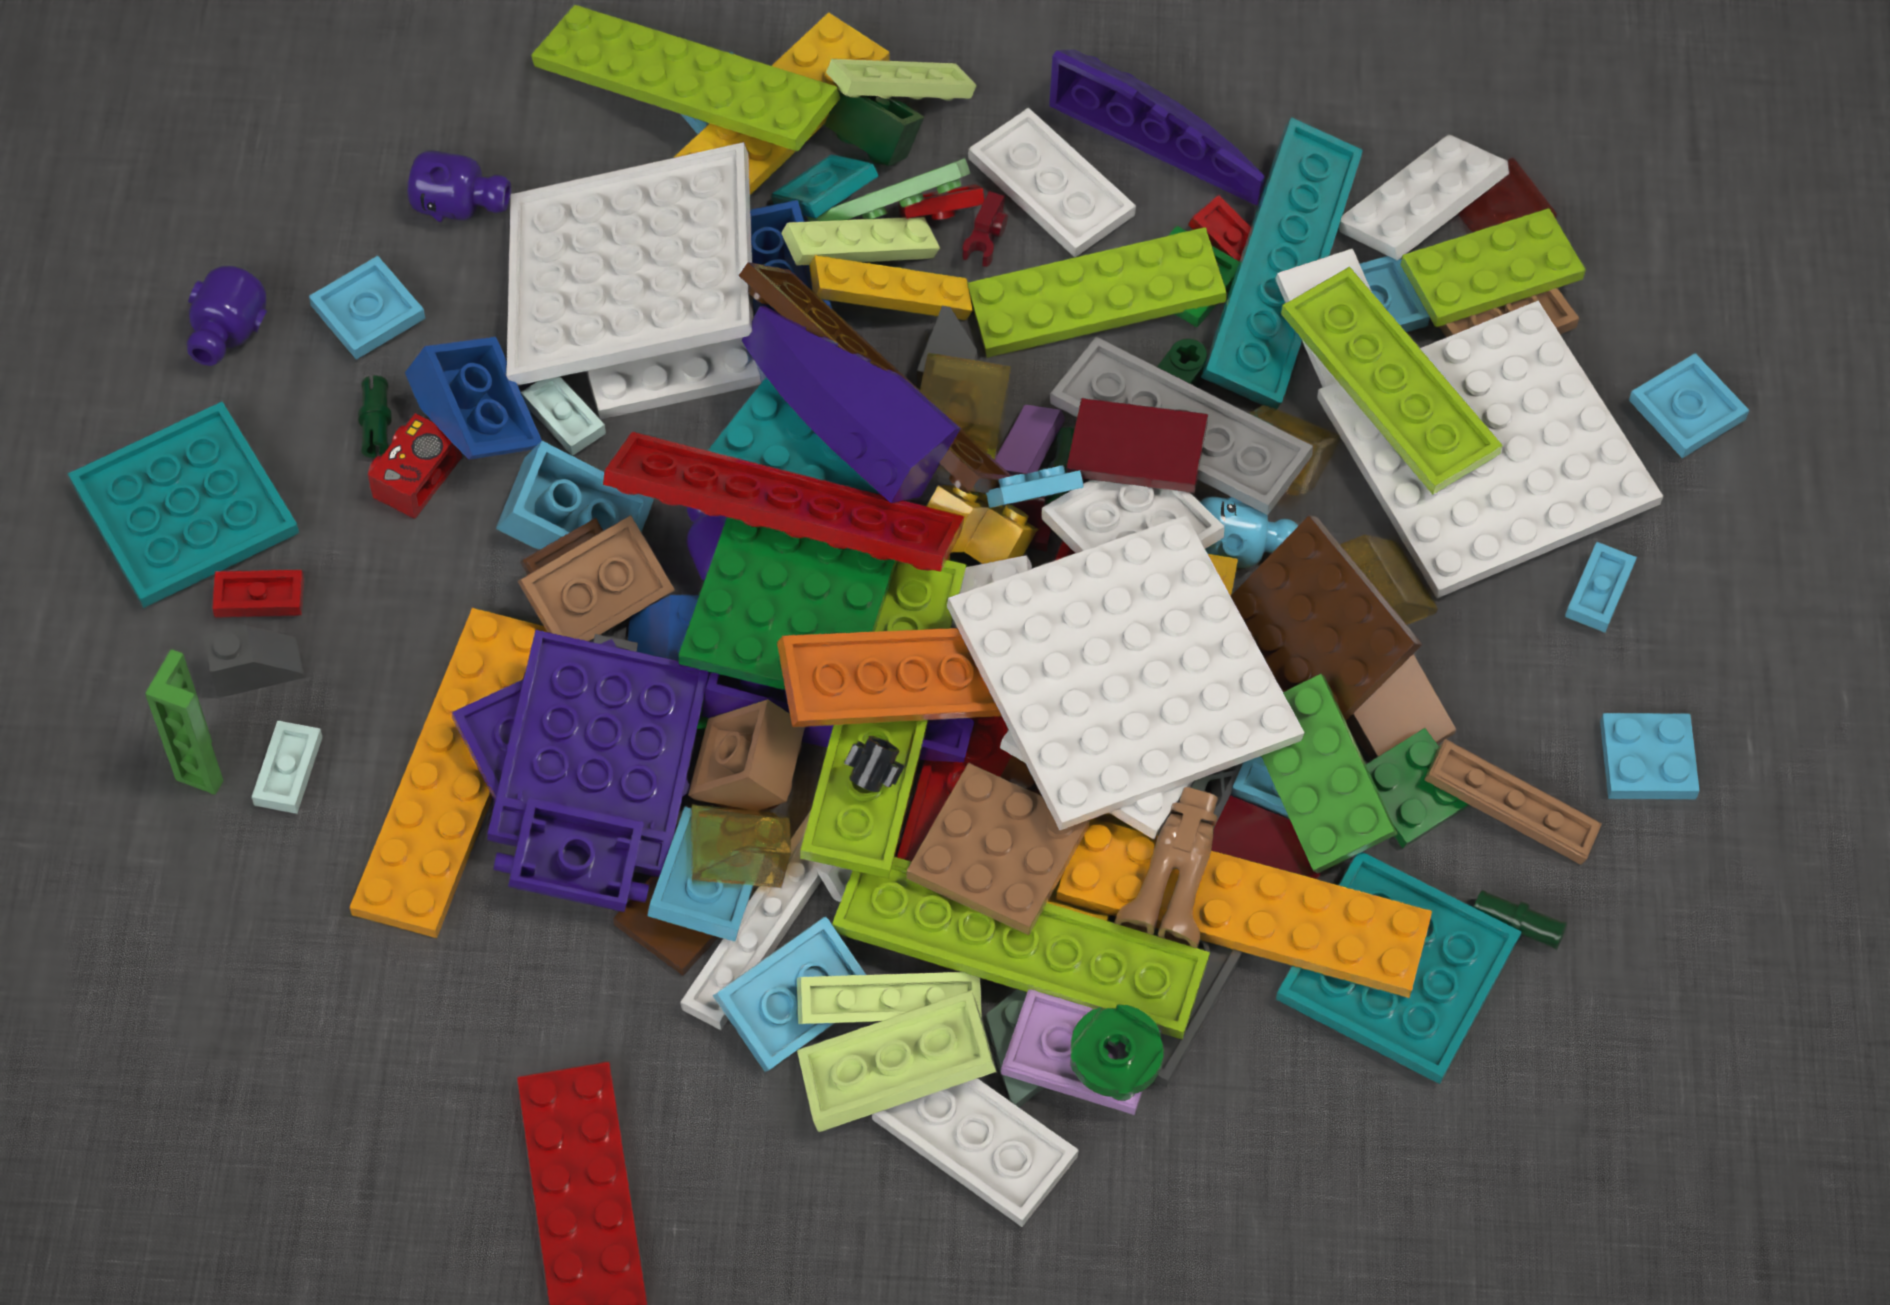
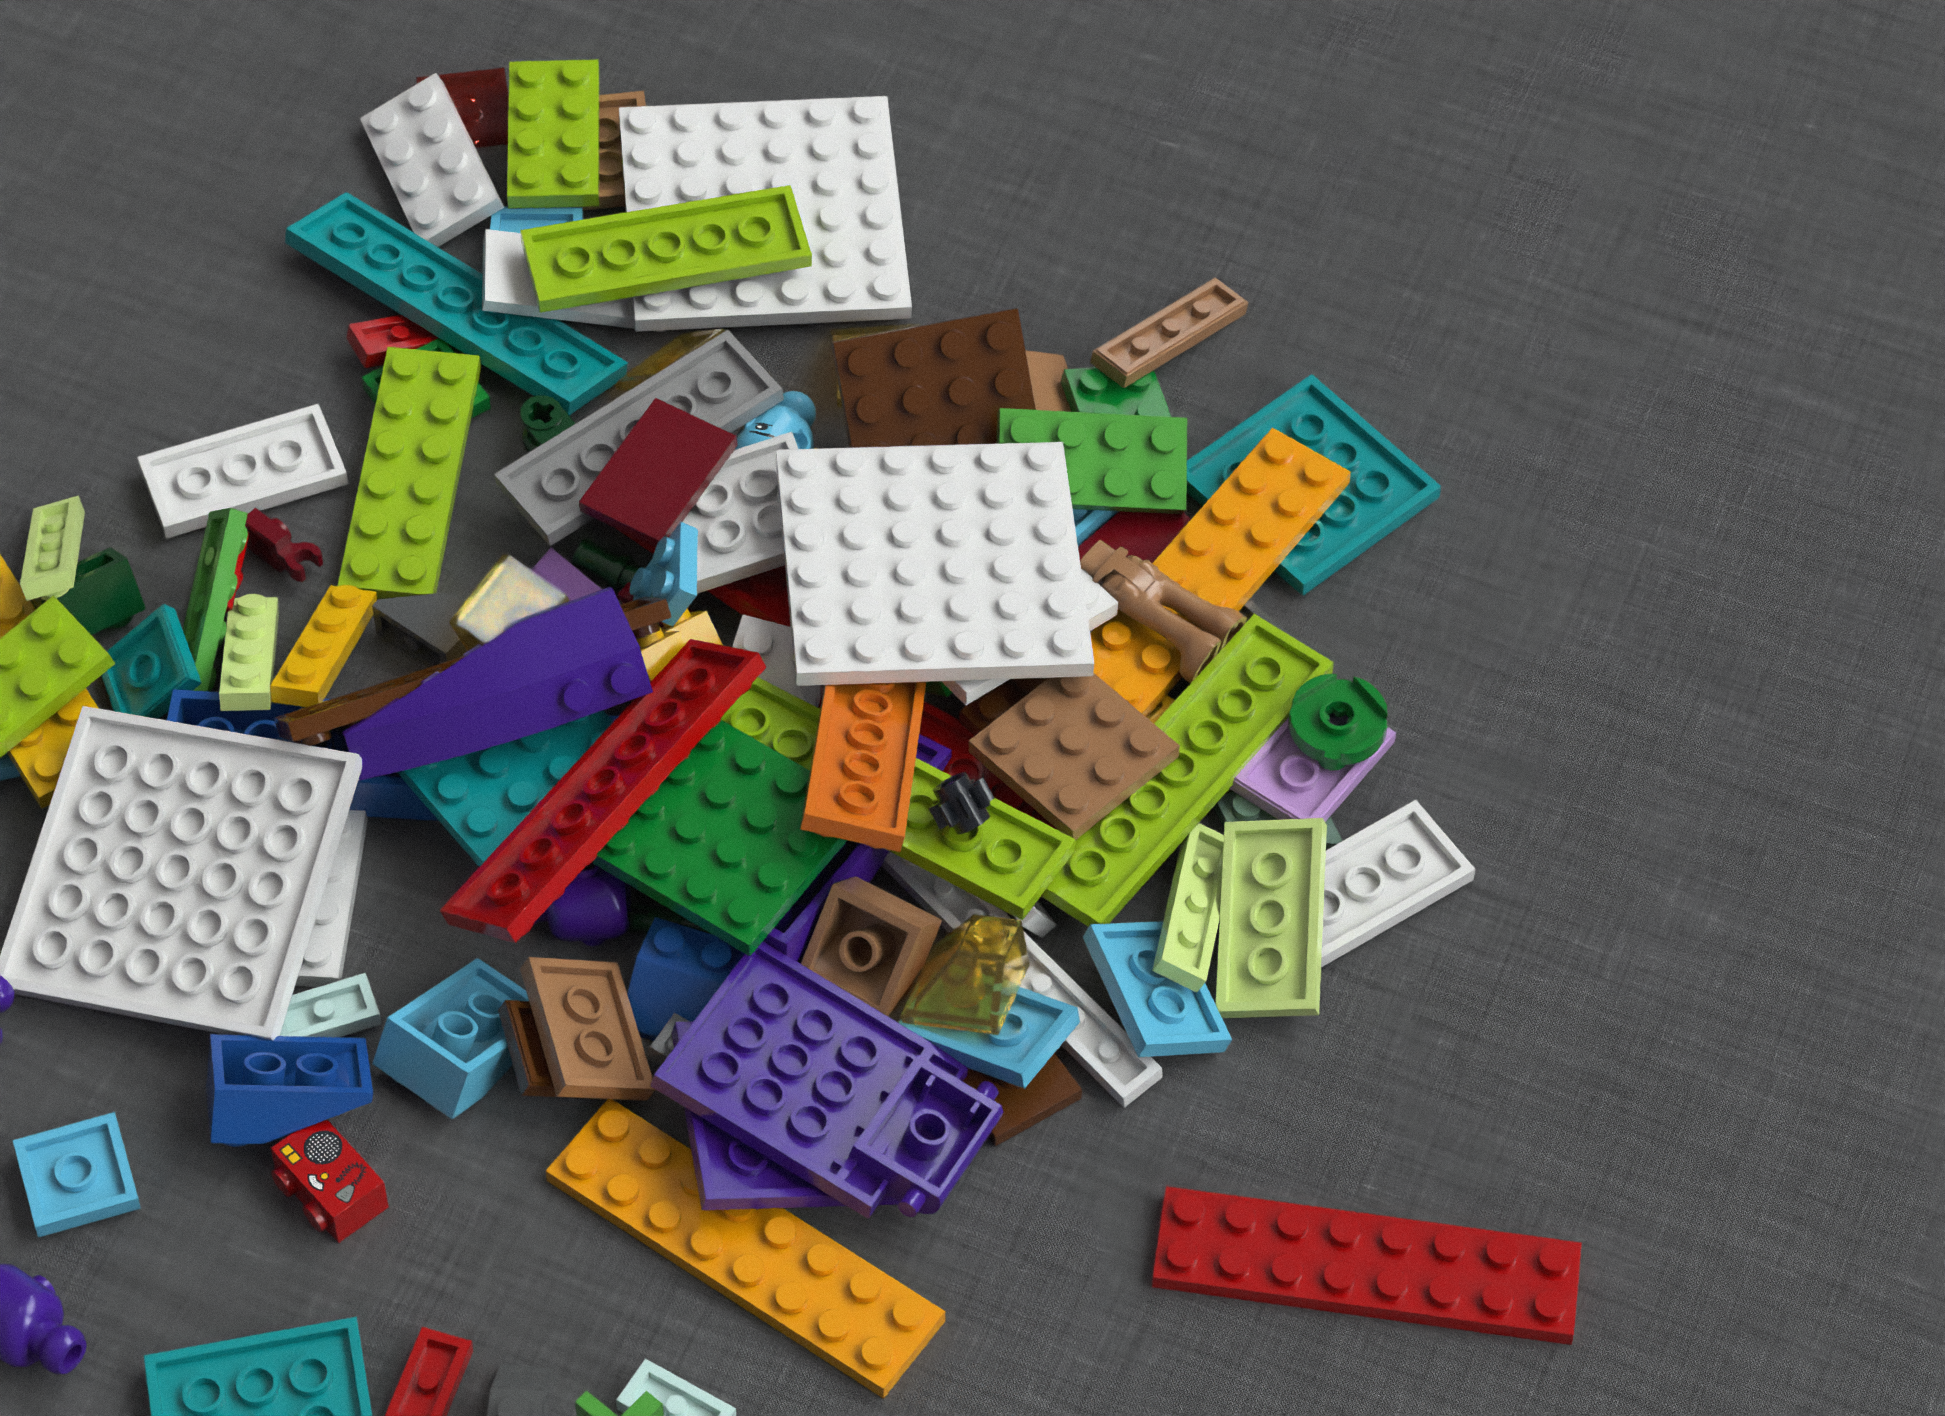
camera: 70 degrees left, 5 degrees down
(374, 416) = (237, 1204): dark green pin -> none
(1150, 122) = (215, 357): dark purple wedge -> none
(1521, 917) = (1293, 370): dark green pin -> none
(1600, 587) = (957, 186): medium azure plate -> none
(1649, 756) = (1154, 219): medium azure plate -> none
(1688, 405) = (782, 47): medium azure plate -> none

